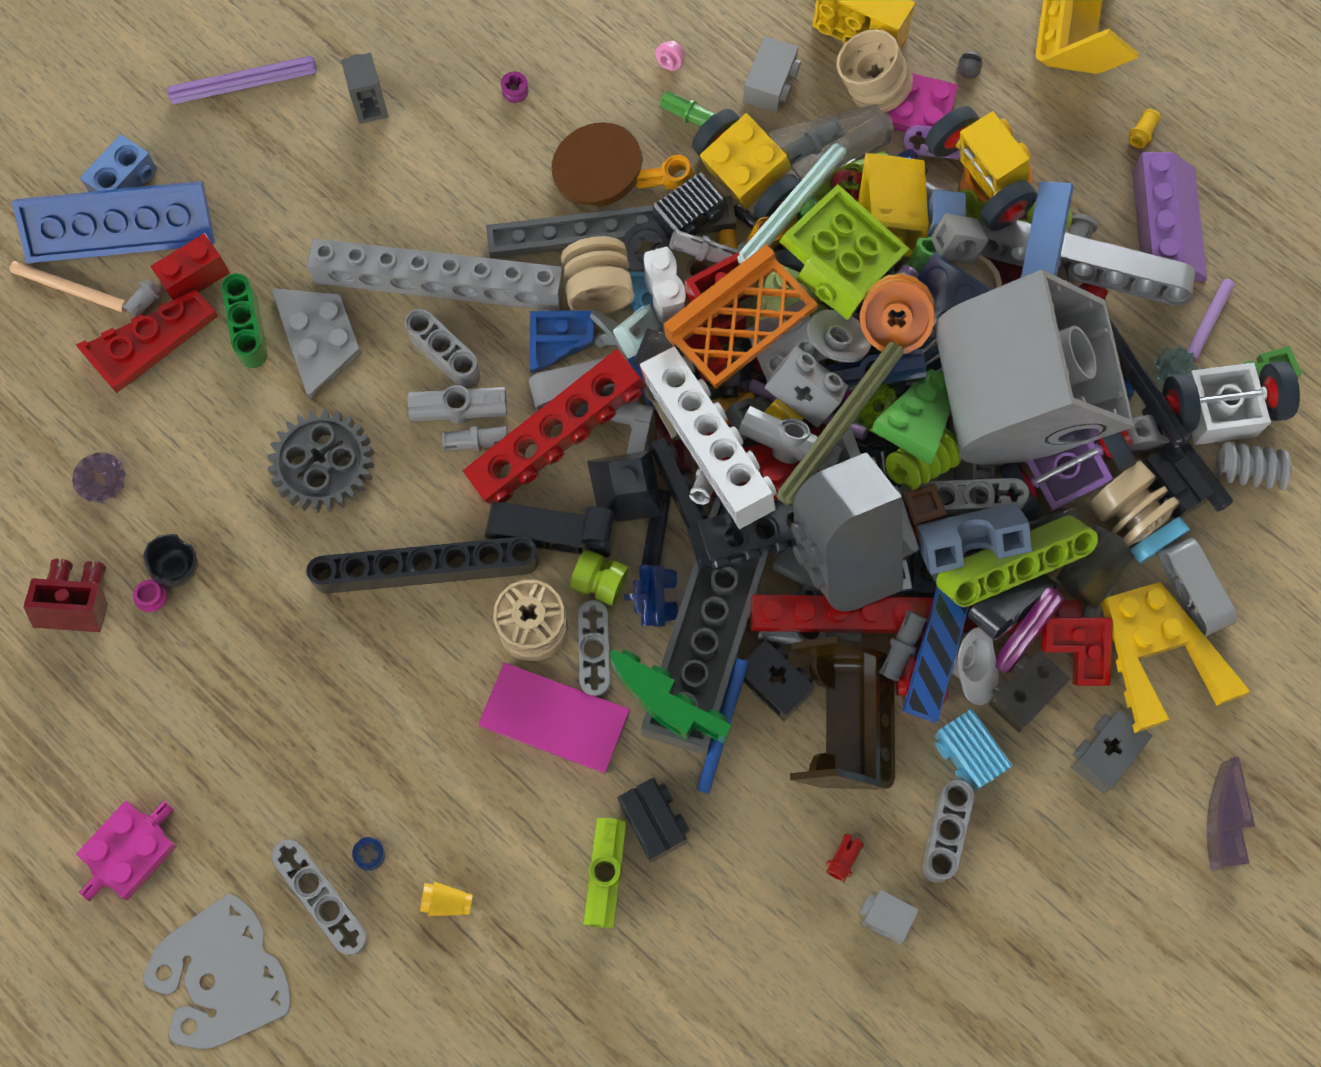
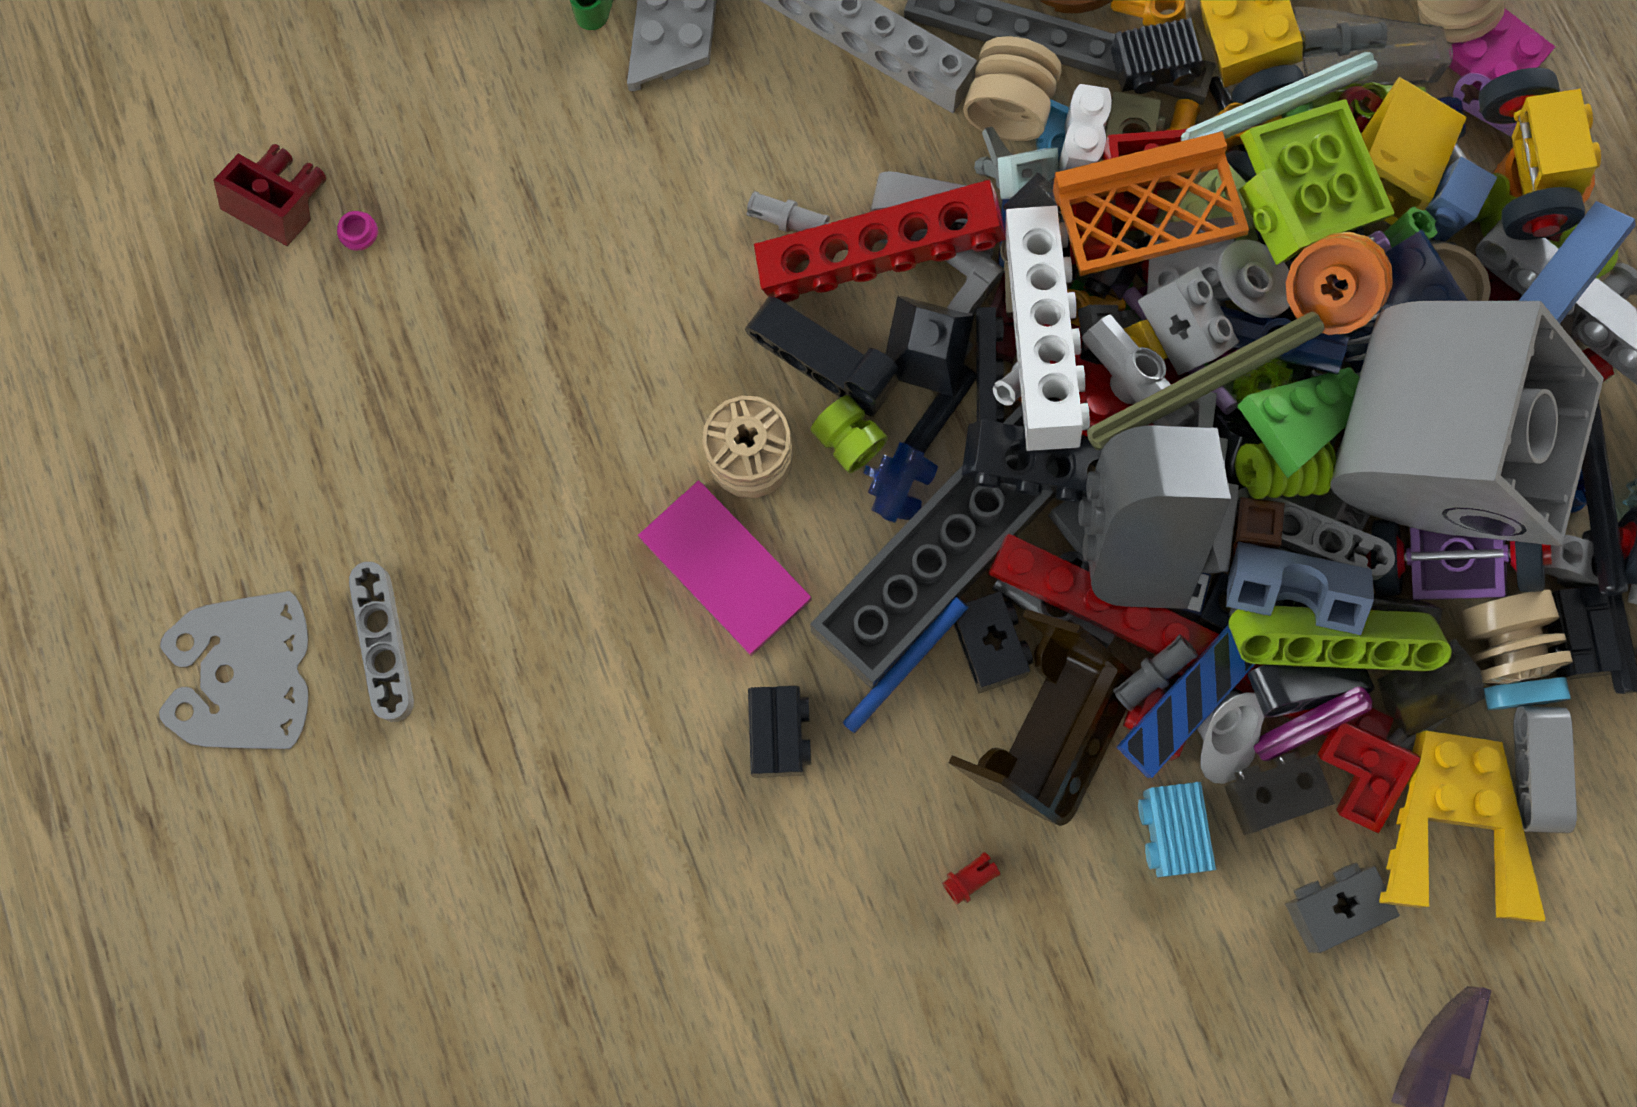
camera: 30 degrees right, 5 degrees up
(84, 477) = (349, 70): clear purple gear -> none
(126, 850) = (206, 493): dark pink plate -> none
(170, 560) = (394, 201): black hair -> none
(303, 441) = (598, 133): dark grey gear -> none
(359, 860) = (441, 622): clear blue bush -> none
(410, 557) = (649, 317): black beam -> none
(436, 336) = (794, 81): light grey beam -> none
(444, 900) = (509, 709): yellow cone -> none
(478, 404) = (764, 157): light grey piece -> none
(558, 336) = (936, 140): blue wing -> none
(585, 674) = (827, 489): light grey beam -> none
(603, 896) = (710, 739): lime piece -> none
(632, 239) = (1073, 66): black gear -> none
(653, 693) = (842, 590): green slope -> none
(700, 247) = (1146, 105): light grey pin -> none
(888, 916) = (987, 967): light grey brick -> none
(957, 817) = (1123, 899): light grey beam -> none
(959, 238) = (1461, 227): light grey brick -> none
(970, 64) = (1582, 29): dark grey hinge -> none

